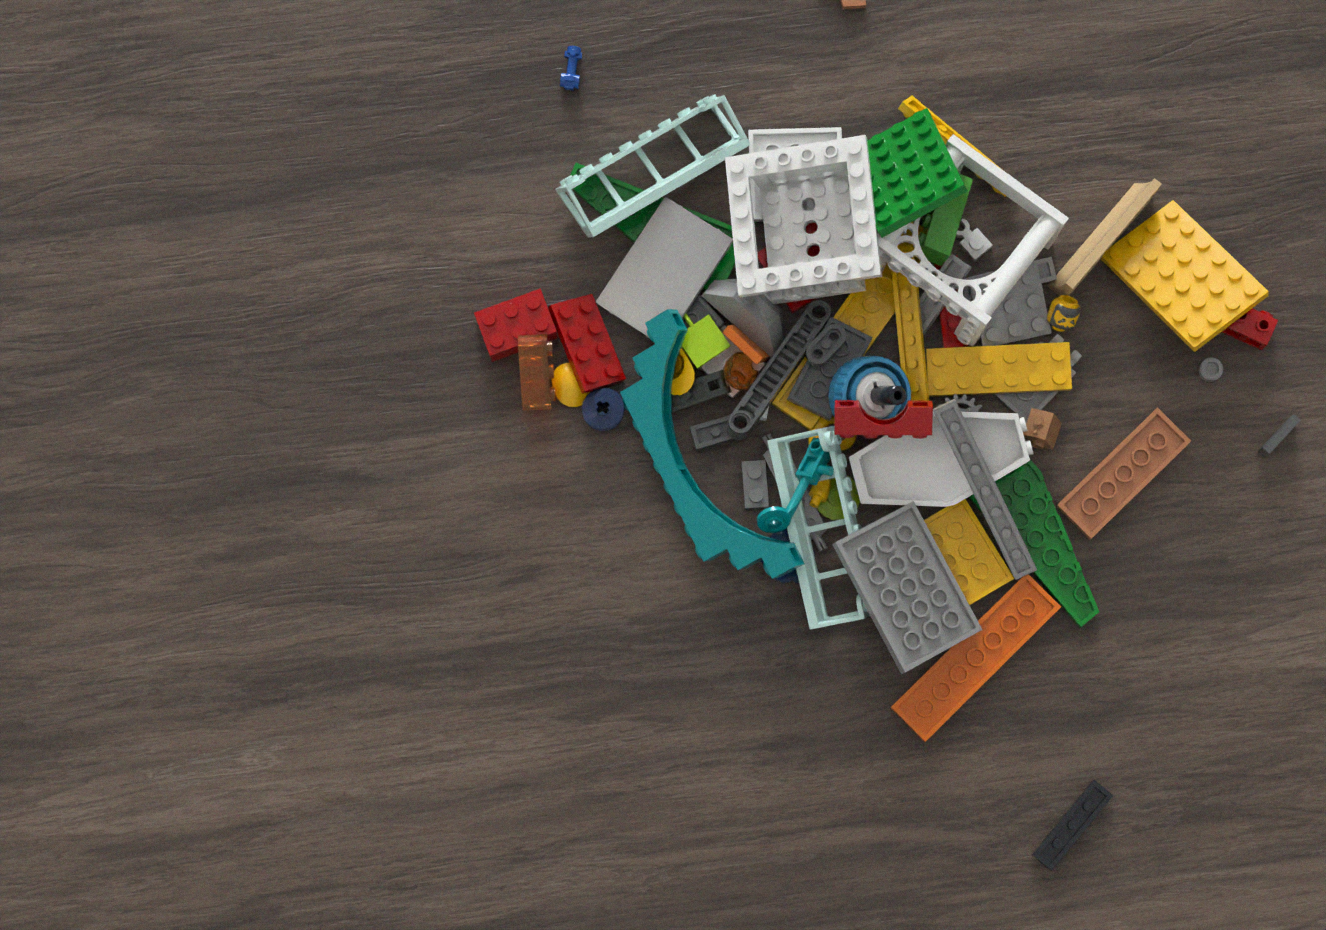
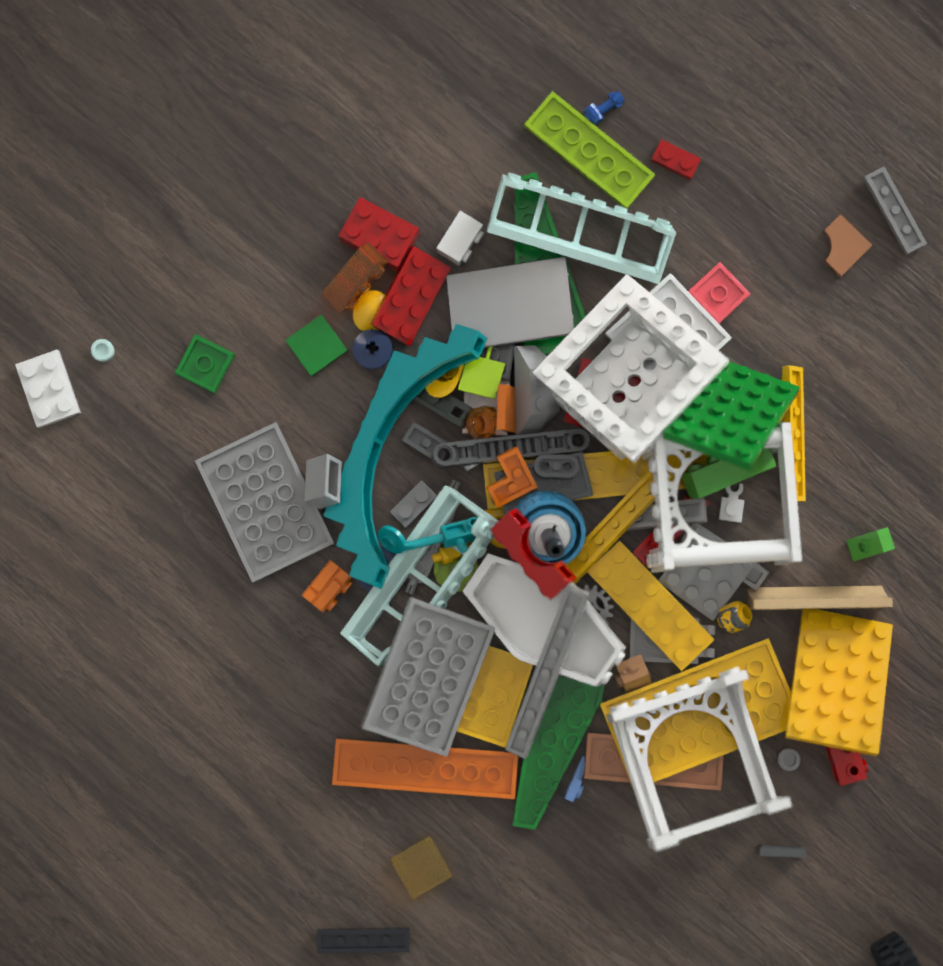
camera: 45 degrees right, 5 degrees up
(402, 695) = (48, 388): none -> white plate
(410, 624) = (102, 350): none -> light aqua tile
(494, 552) = (204, 364): none -> green tile
(559, 451) = (316, 345): none -> green tile
(575, 265) = (460, 238): none -> white brick
(595, 108) = (589, 150): none -> lime plate
(649, 600) = (263, 502): none -> light grey plate
(661, 50) = (675, 159): none -> red plate
(675, 537) = (323, 481): none -> light grey brick
(762, 608) = (327, 587): none -> orange brick
(796, 106) = (719, 292): none -> coral plate
(811, 384) = (517, 479): none -> orange plate
(1052, 728) = (421, 867): none -> clear yellow plate
(1092, 552) = (575, 788): none -> medium blue plate
(1096, 162) = (870, 544): none -> bright green brick
(1117, 405) = (697, 736): none -> yellow plate
(1123, 363) = (730, 690): none -> white arch

